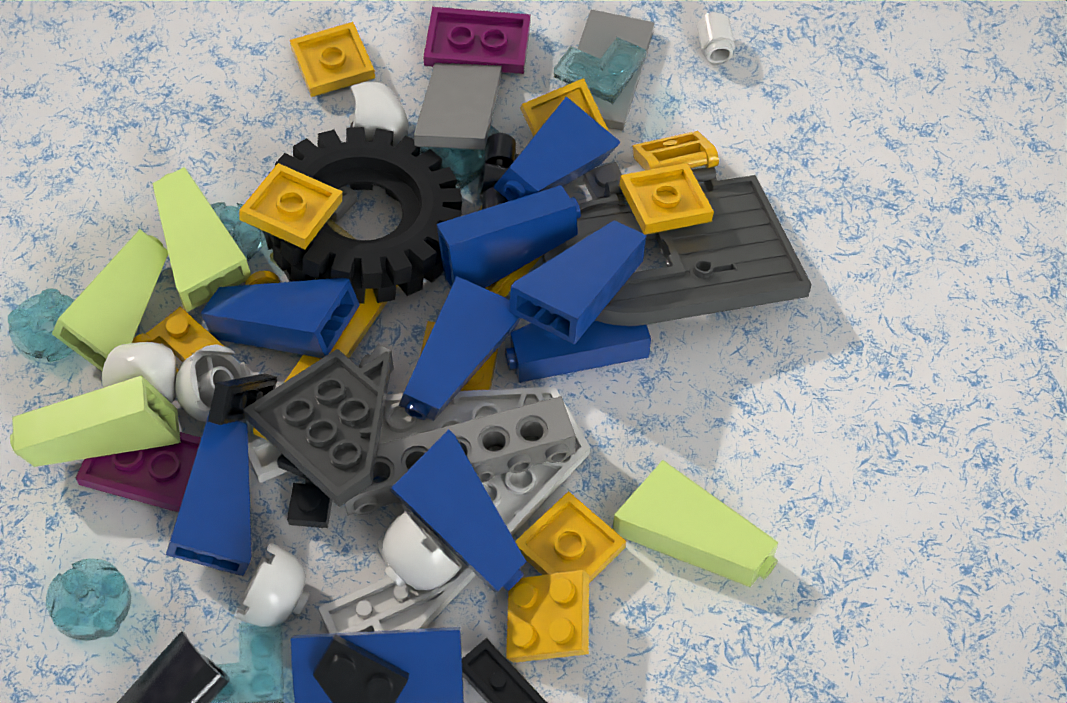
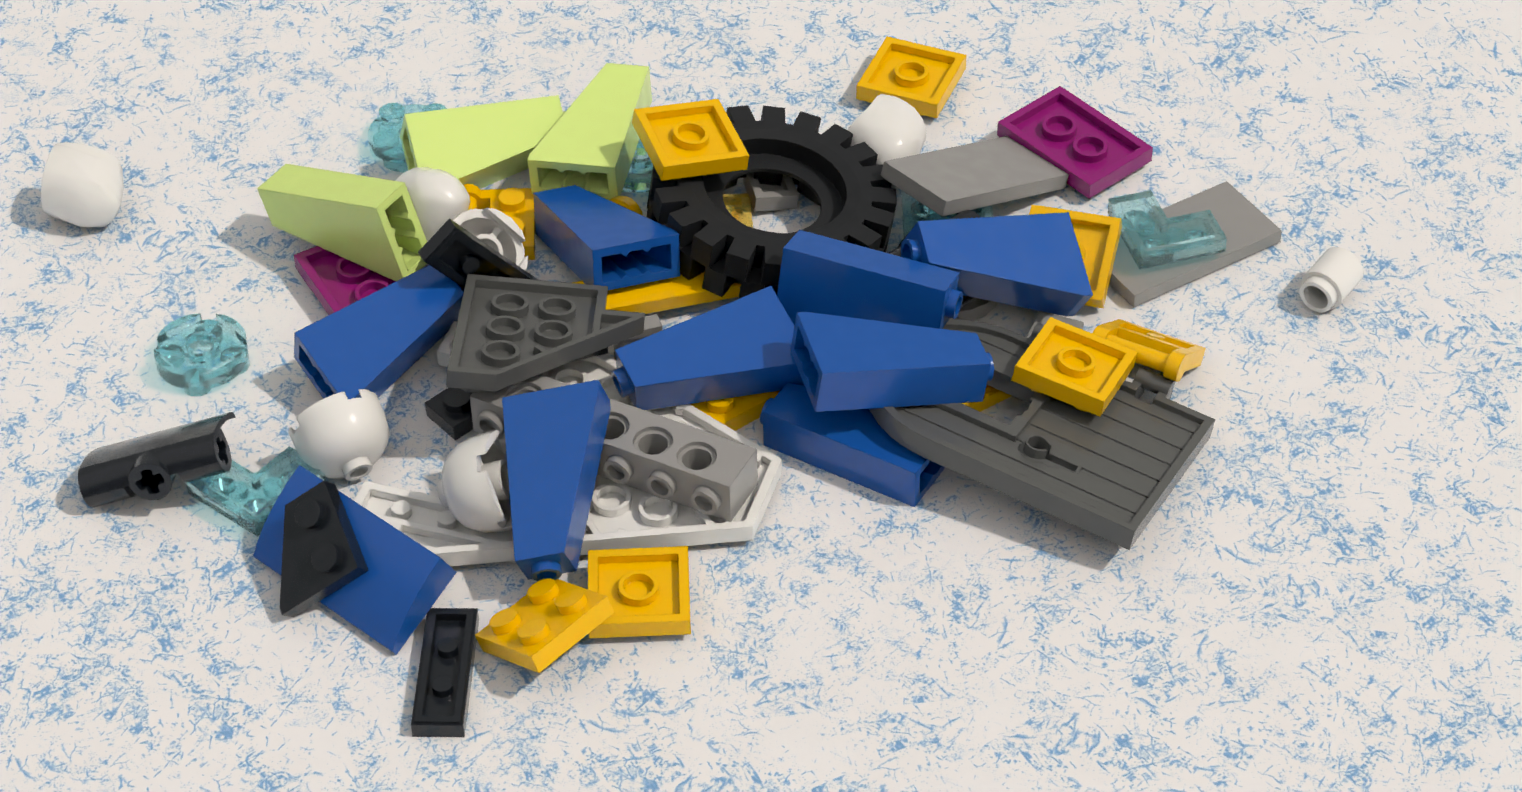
camera: 45 degrees right, 15 degrees down
(695, 527) = (768, 655): yellowish green slope -> none

